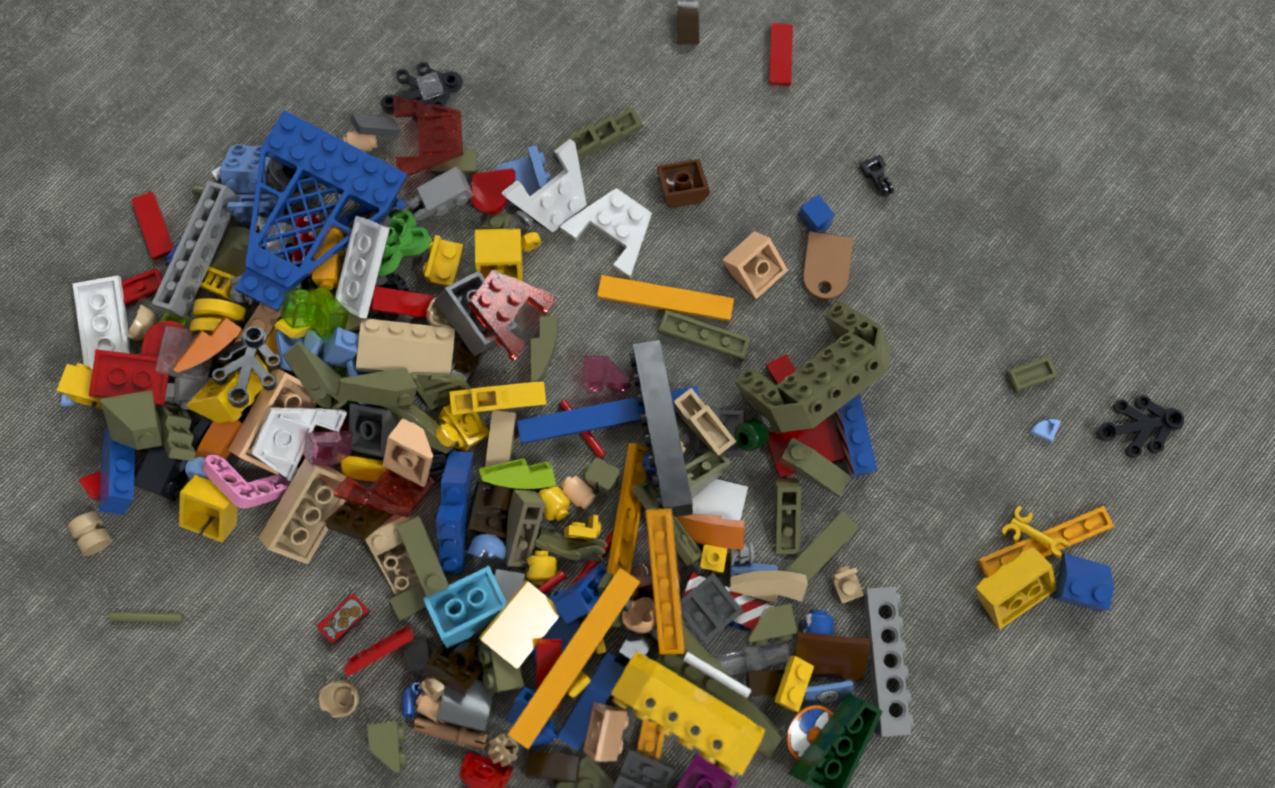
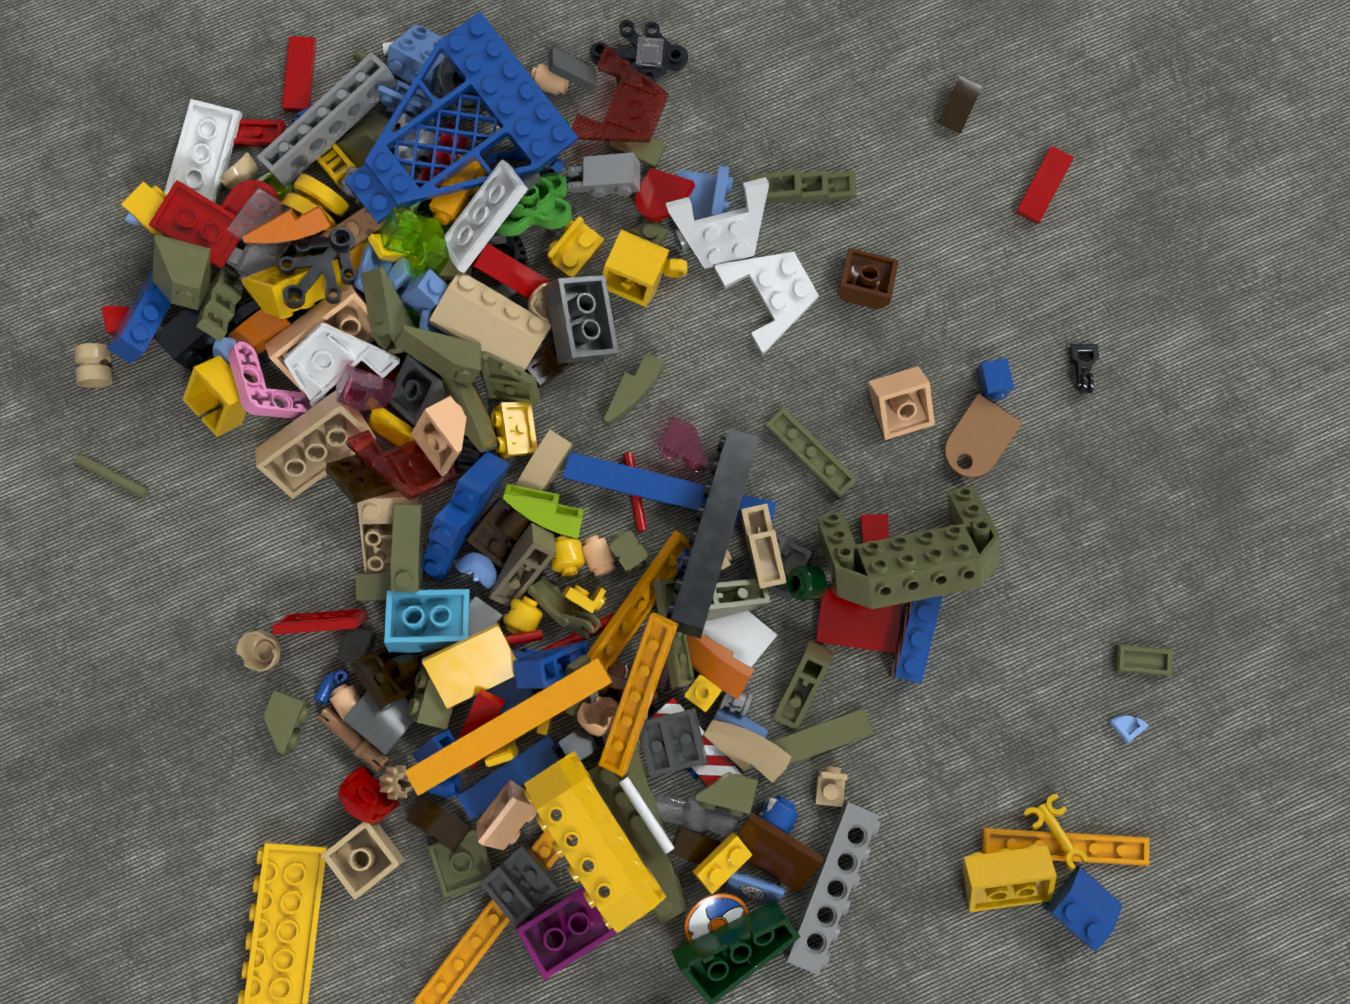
camera: 30 degrees right, 5 degrees up
(343, 618) = (301, 571): tile -> none
(432, 688) = (353, 686): tan tile -> none
(447, 435) = (490, 433): yellow tile -> none
(498, 397) = (561, 419): yellow slope -> none
(499, 302) = (609, 319): clear red wing -> none
(665, 298) = (789, 394): light orange tile -> none
(814, 467) = (856, 649): olive slope -> none
(1144, 425) = (1238, 772): black plant -> none

